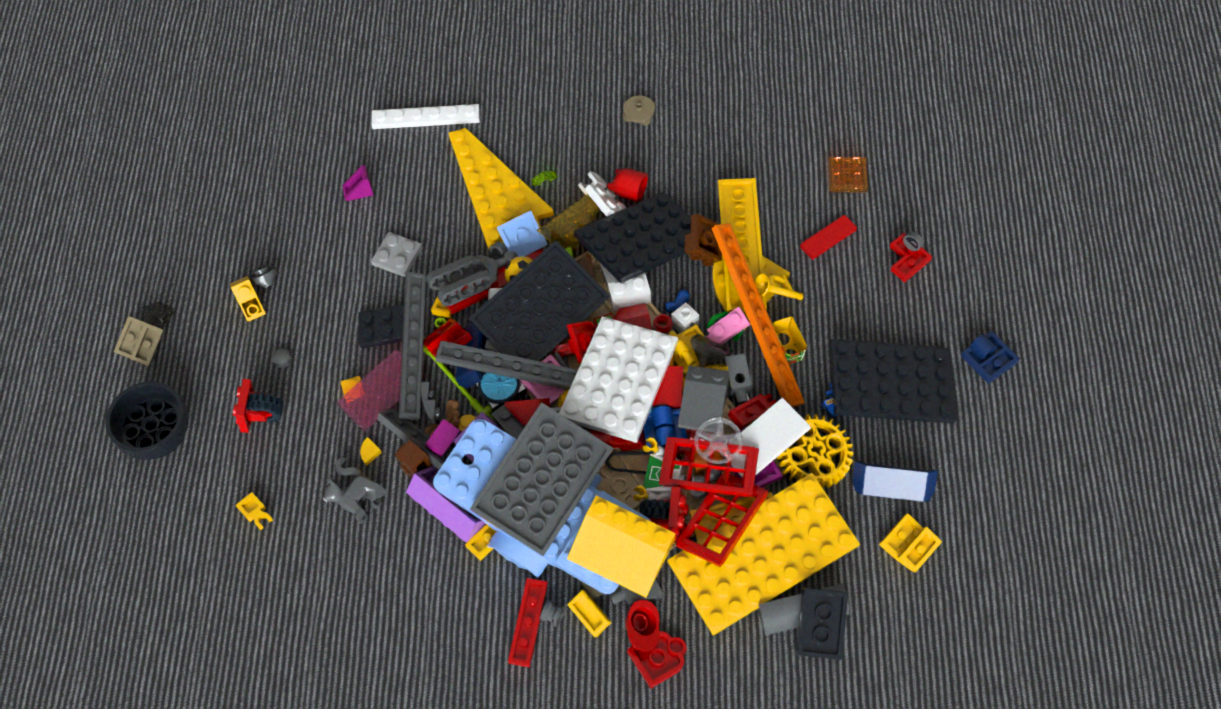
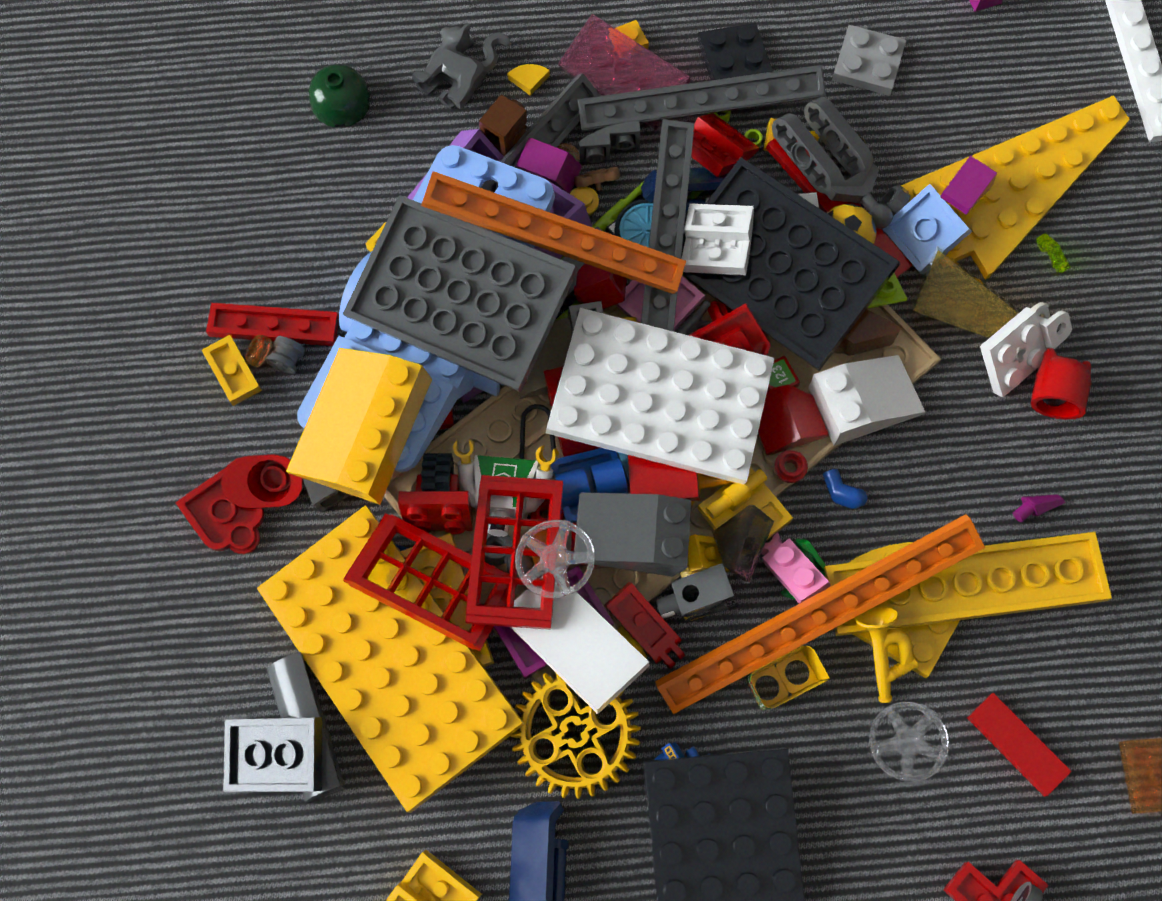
camera: 80 degrees right, 10 degrees up
(359, 573) = (339, 95): none -> dark green cylinder
(501, 207) = (969, 185): none -> magenta slope
(510, 420) = (553, 232): none -> orange plate
(519, 337) = (718, 238): none -> white slope
(547, 631) = (258, 350): none -> clear orange tile
(558, 650) = (231, 370): none -> yellow plate
(589, 613) = (283, 410): yellow tile -> none
(637, 237) = (952, 414): black plate -> none
(684, 318) = (805, 502): white brick -> none
(695, 206) = (1037, 505): none -> magenta bar
(701, 241) = (949, 500): reddish brown plate -> none
(825, 287) = (909, 741): none -> clear wheel

